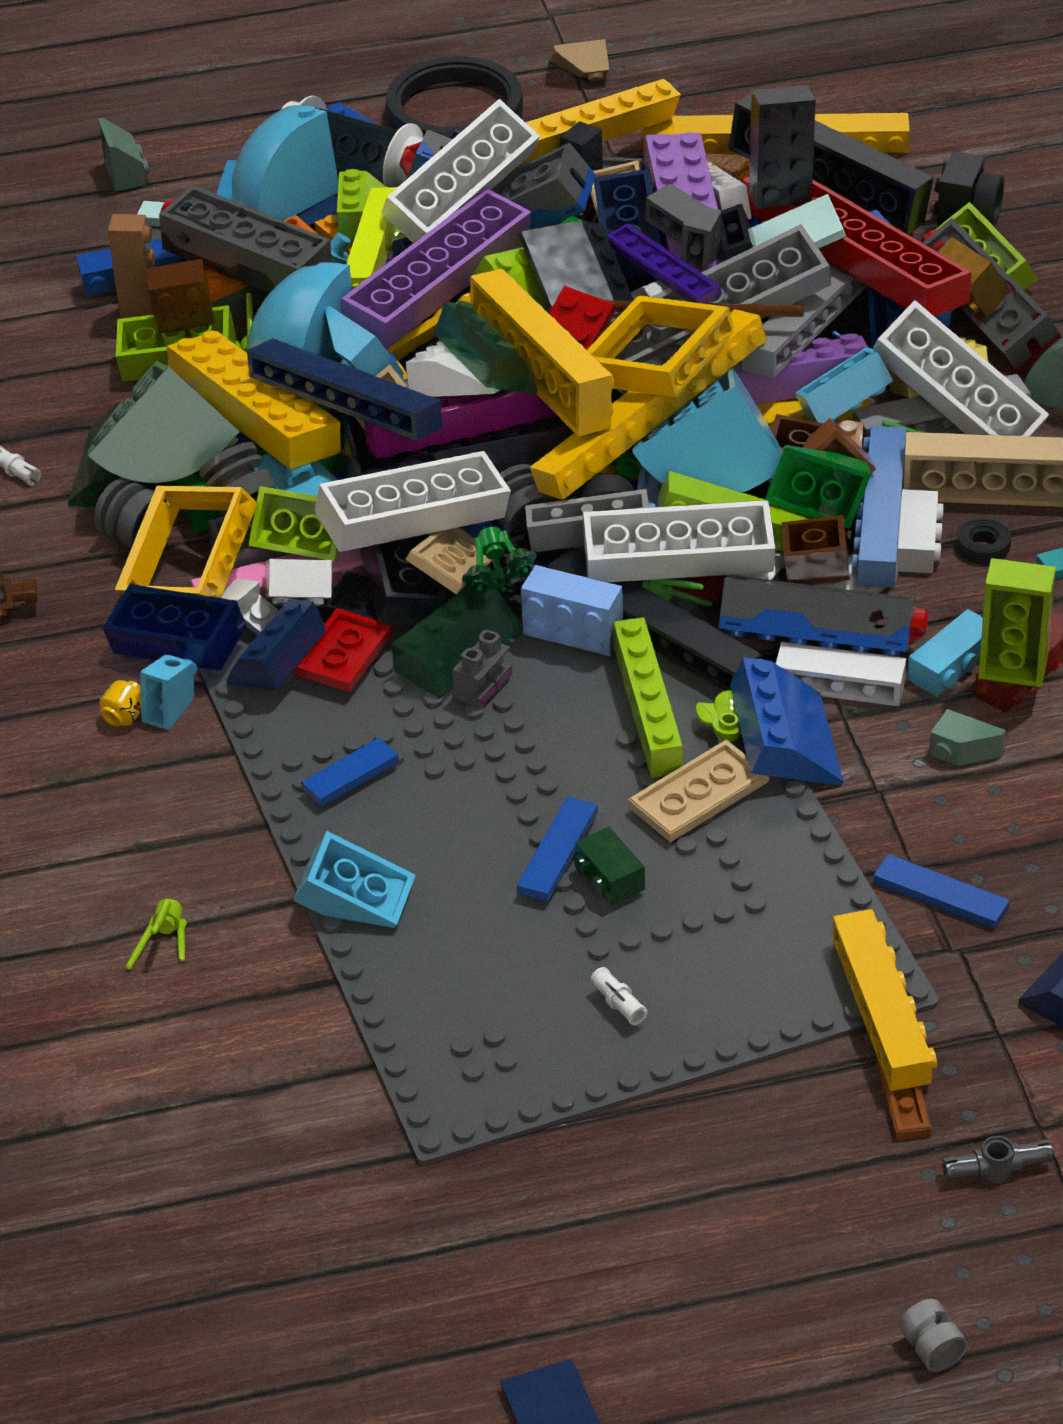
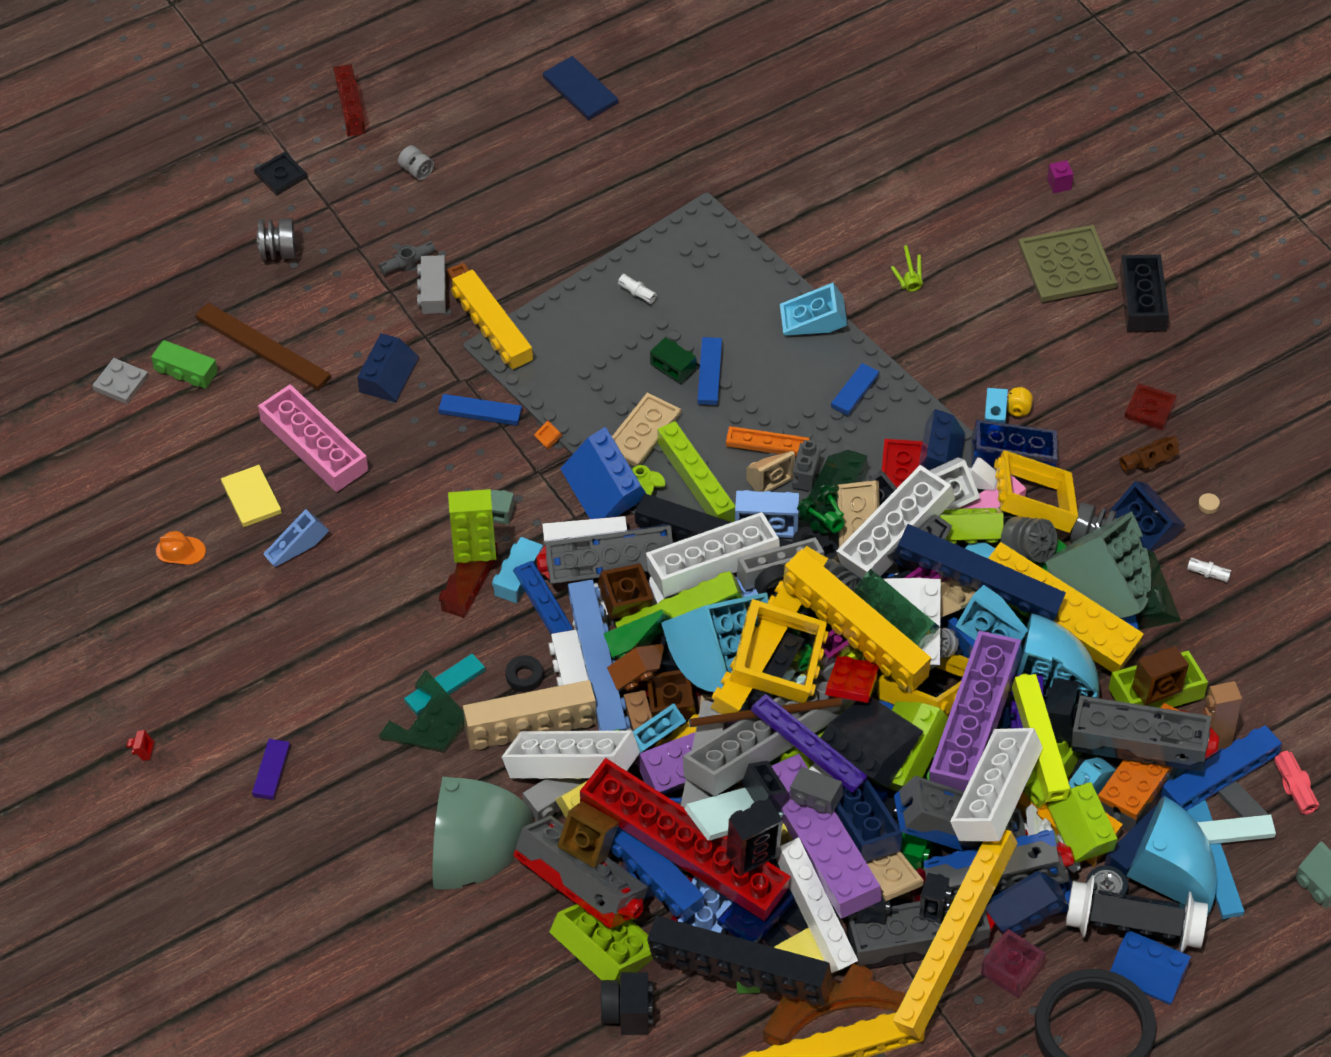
camera: 160 degrees right, 10 degrees up
(48, 530) = (1153, 515): none -> dark blue slope
(80, 241) = (1296, 782): none -> coral piece
(518, 732) = (763, 440): none -> orange tile
(537, 665) = (771, 472): none -> tan slope
(701, 237) = (786, 755): dark grey brick -> none
(846, 824) = (548, 435): none -> orange tile
(930, 595) = (542, 598): none -> blue tile
(964, 1100) = (432, 284): none -> light grey brick

